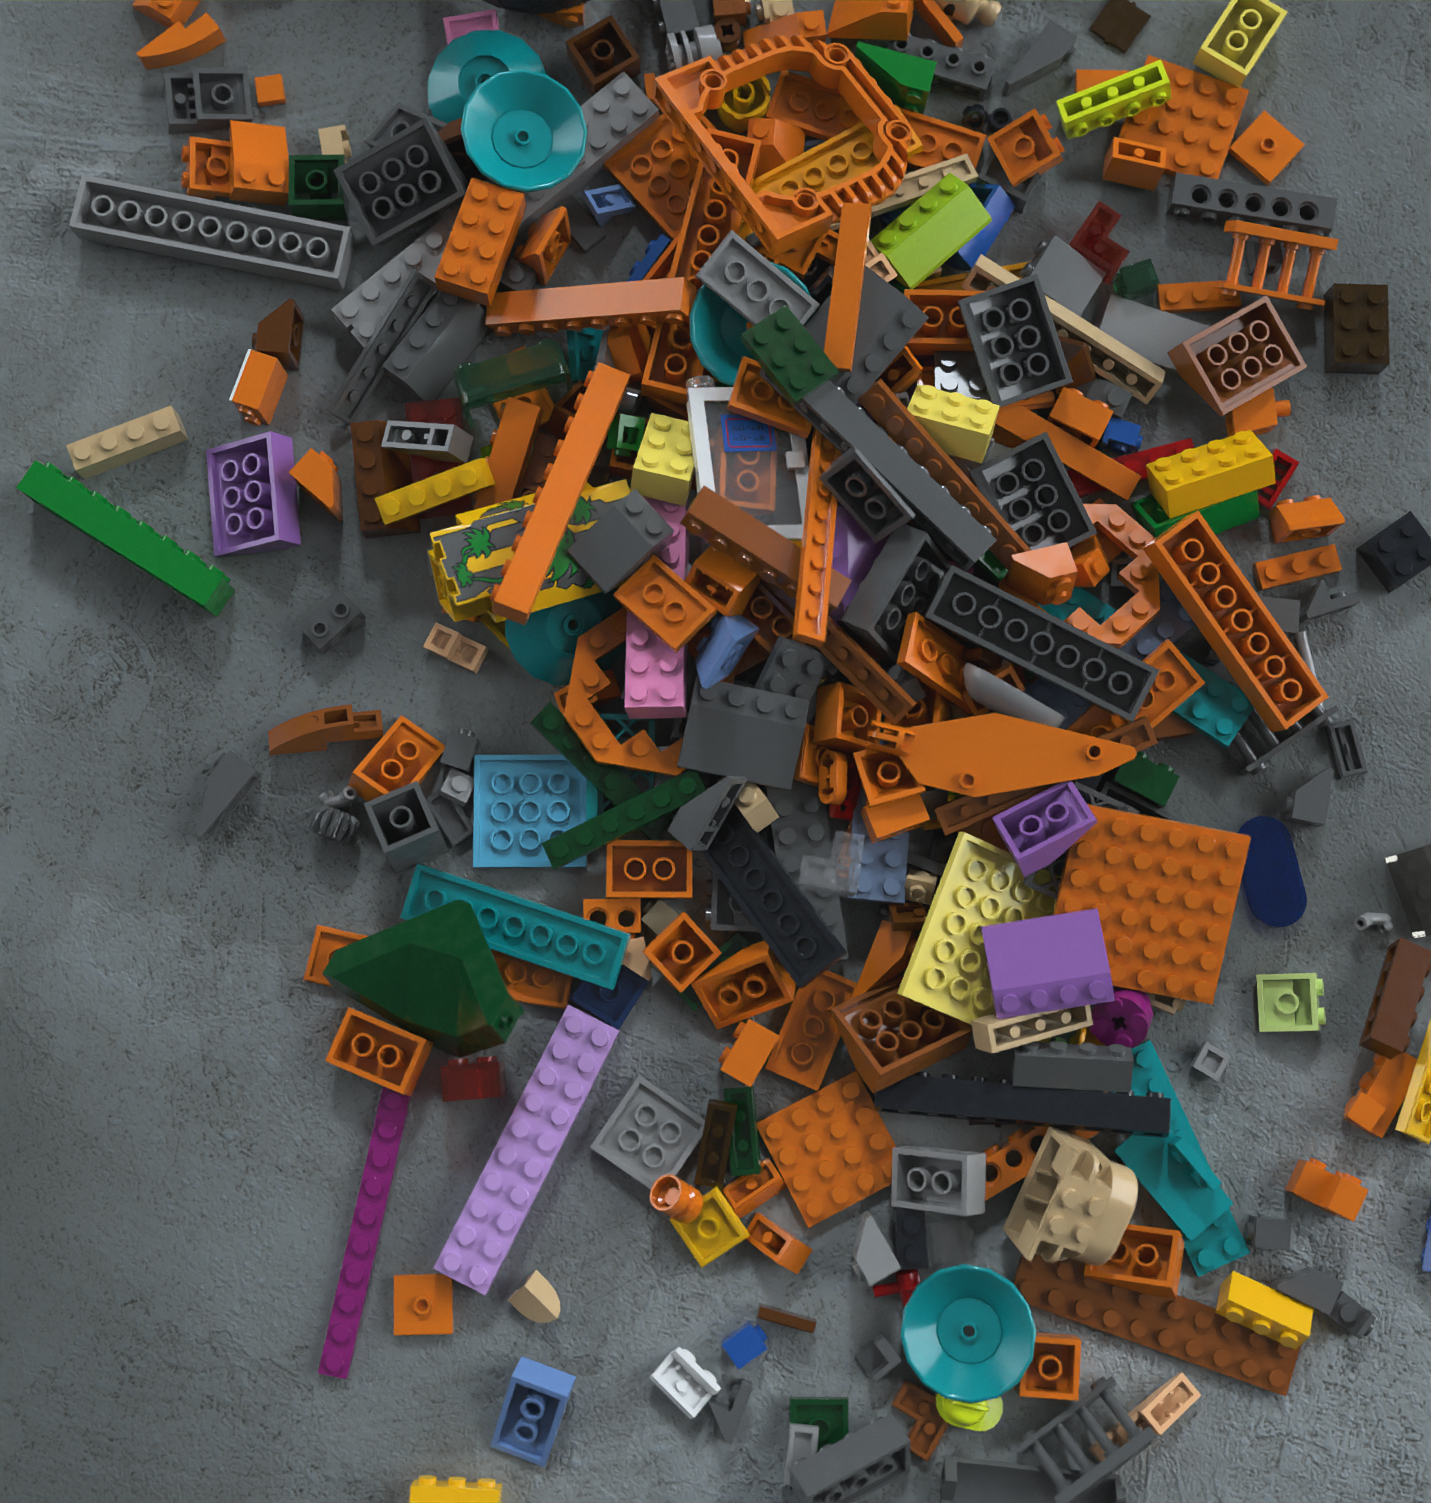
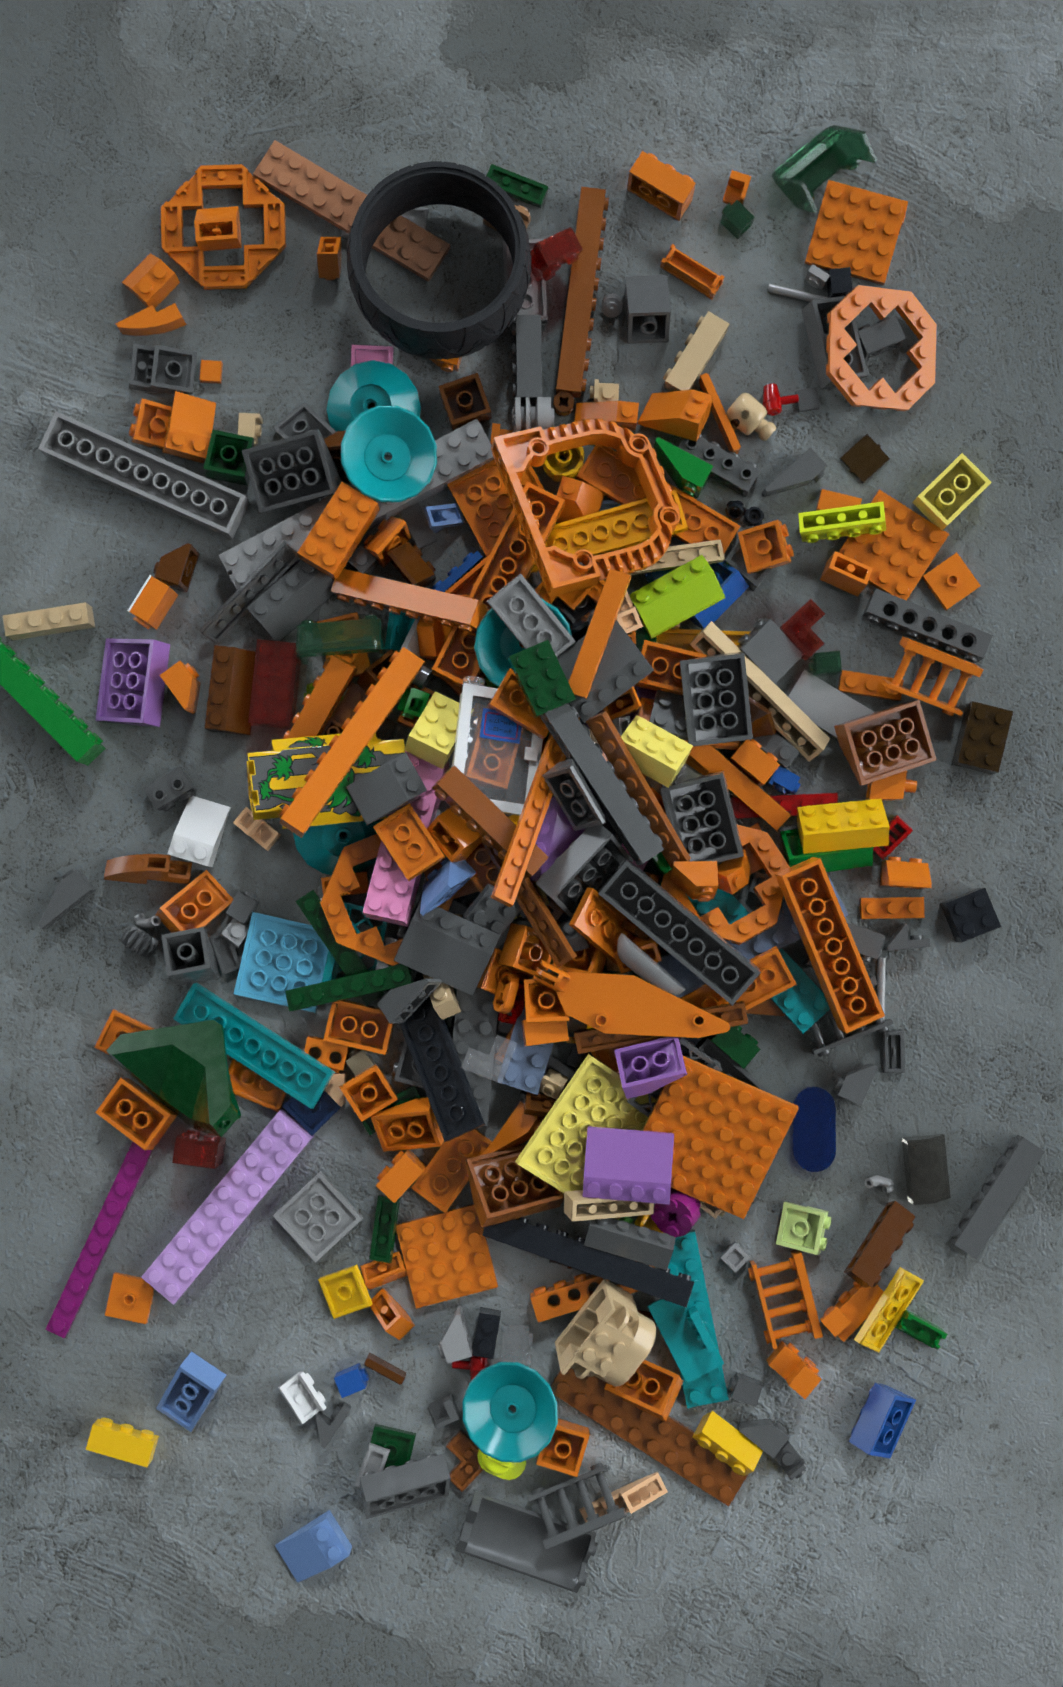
camera: 20 degrees right, 5 degrees up
(382, 668) = (199, 831): none -> white slope
(428, 440) = (267, 673): dark grey slope -> none
(435, 491) = (263, 714): yellow brick -> none
(537, 1299) = (211, 1314): tan brick -> none
(576, 267) = (411, 565): none -> reddish brown slope
(676, 1198) = (325, 1267): orange wheel -> none
(715, 1143) = (362, 1234): dark brown plate -> none
(938, 1180) = (515, 1299): light grey brick -> none
(1319, 1102) = (805, 1304): none -> orange fence

